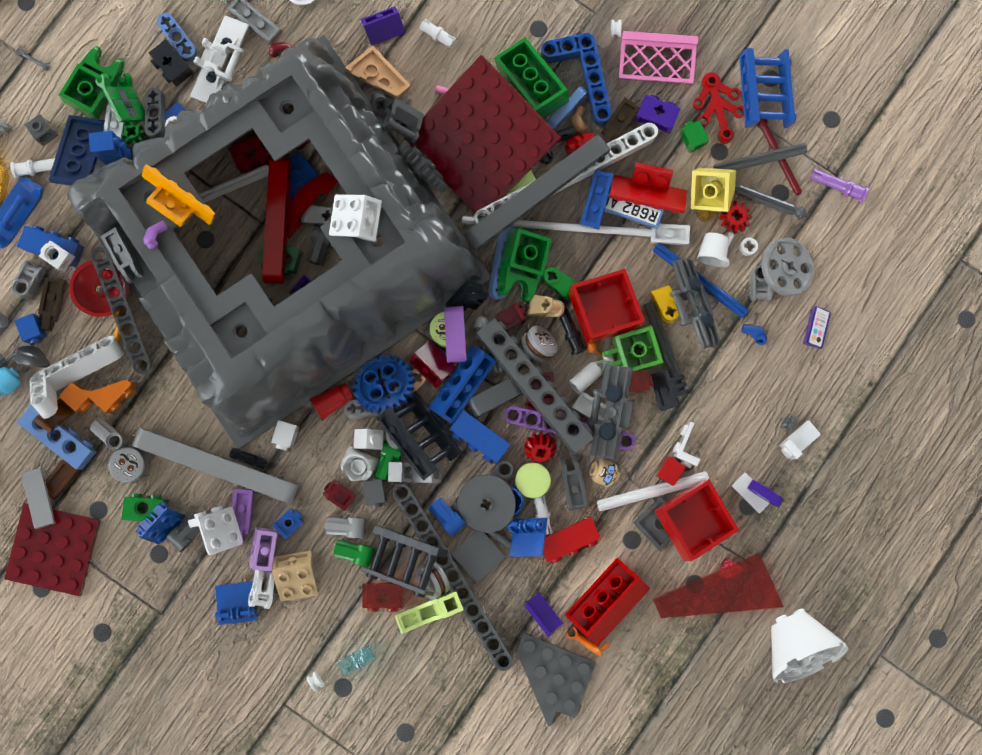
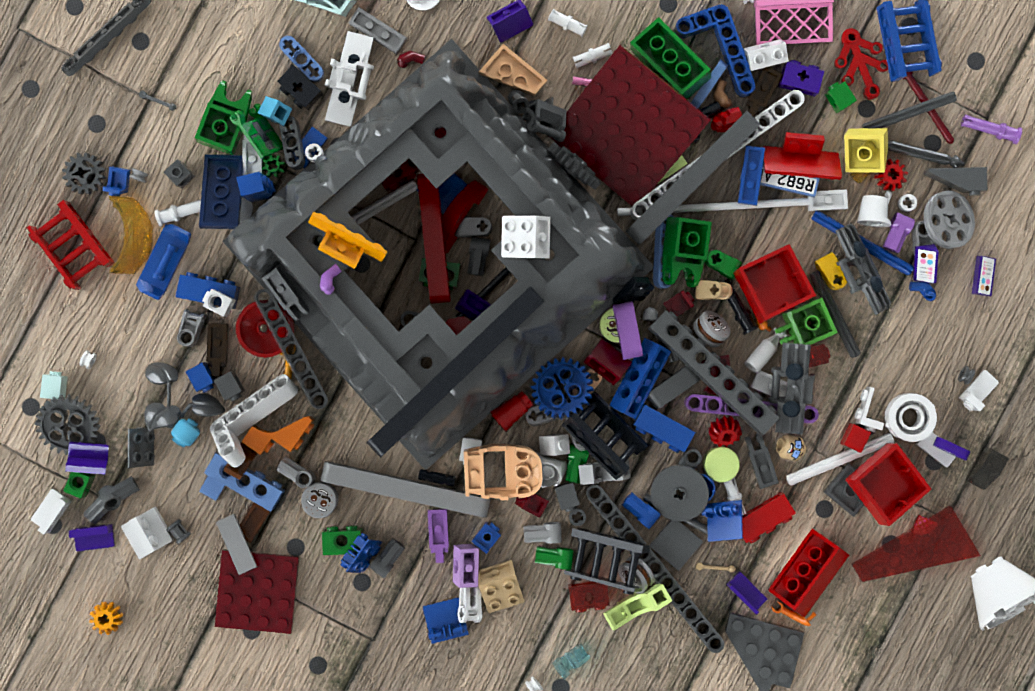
camera: 10 degrees left, 5 degrees up
(24, 440) = (212, 488): none -> medium blue tile
(57, 341) = (229, 386): none -> dark grey brick
(142, 81) = (275, 111): none -> medium azure brick
(218, 529) = (420, 552): white bracket -> none
(264, 340) = (455, 371): none -> black beam
(331, 461) = (522, 472): none -> light nougat slope
(384, 521) = (580, 521): none -> dark grey bush
(455, 68) = (592, 55): none -> white pin
(531, 588) = (699, 566): none -> tan hinge
(626, 86) = (766, 54): none -> white brick
(668, 389) = (844, 357): black hinge -> none
(737, 271) = (899, 229): none -> medium lavender piece
(742, 452) = (924, 423): none -> white piece
(759, 307) = (925, 263): none -> slope
(799, 519) = (987, 468): none -> clear smoke slope
(806, 230) = (964, 180): none -> dark grey slope

